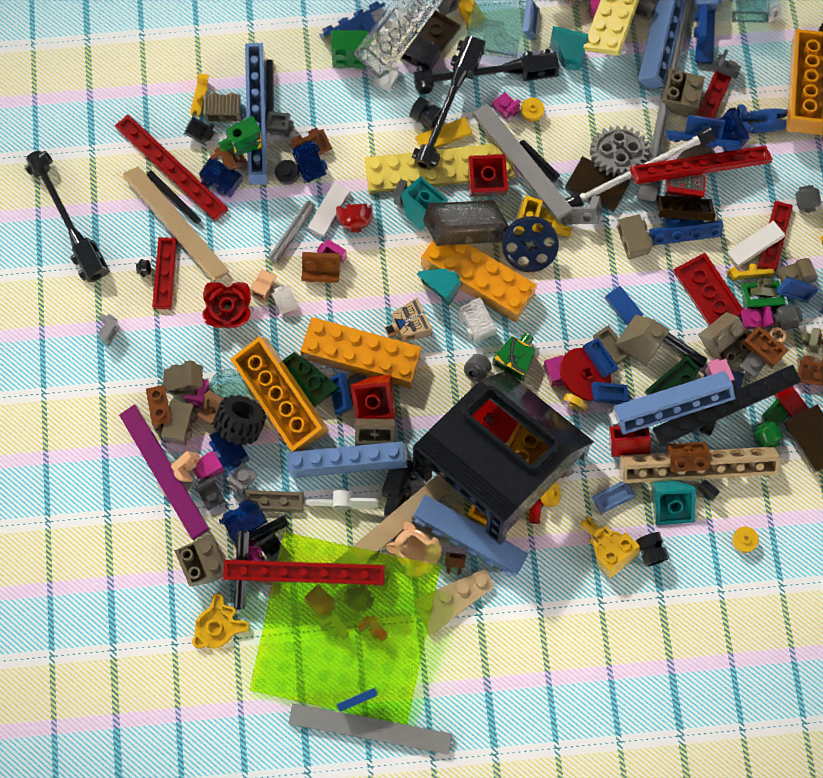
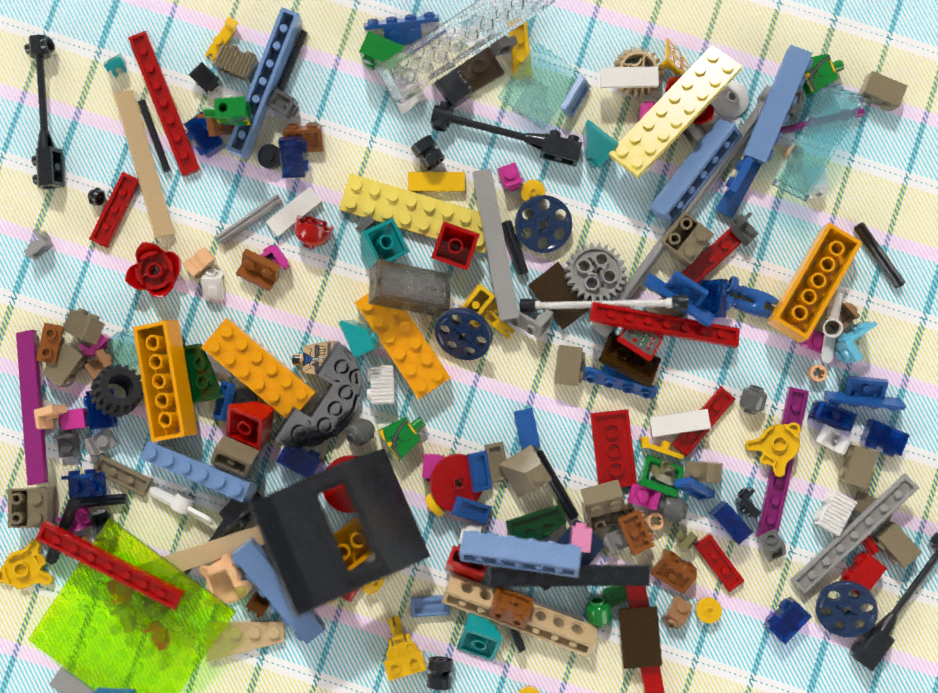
camera: 25 degrees right, 15 degrees up
(112, 150) = (114, 63): none -> teal tile
(429, 413) = (300, 460): none -> clear blue brick
(444, 354) = (334, 407): none -> black plate
(463, 67) = (485, 121): black bar -> none
(561, 126) = (553, 223): none -> dark blue wedge

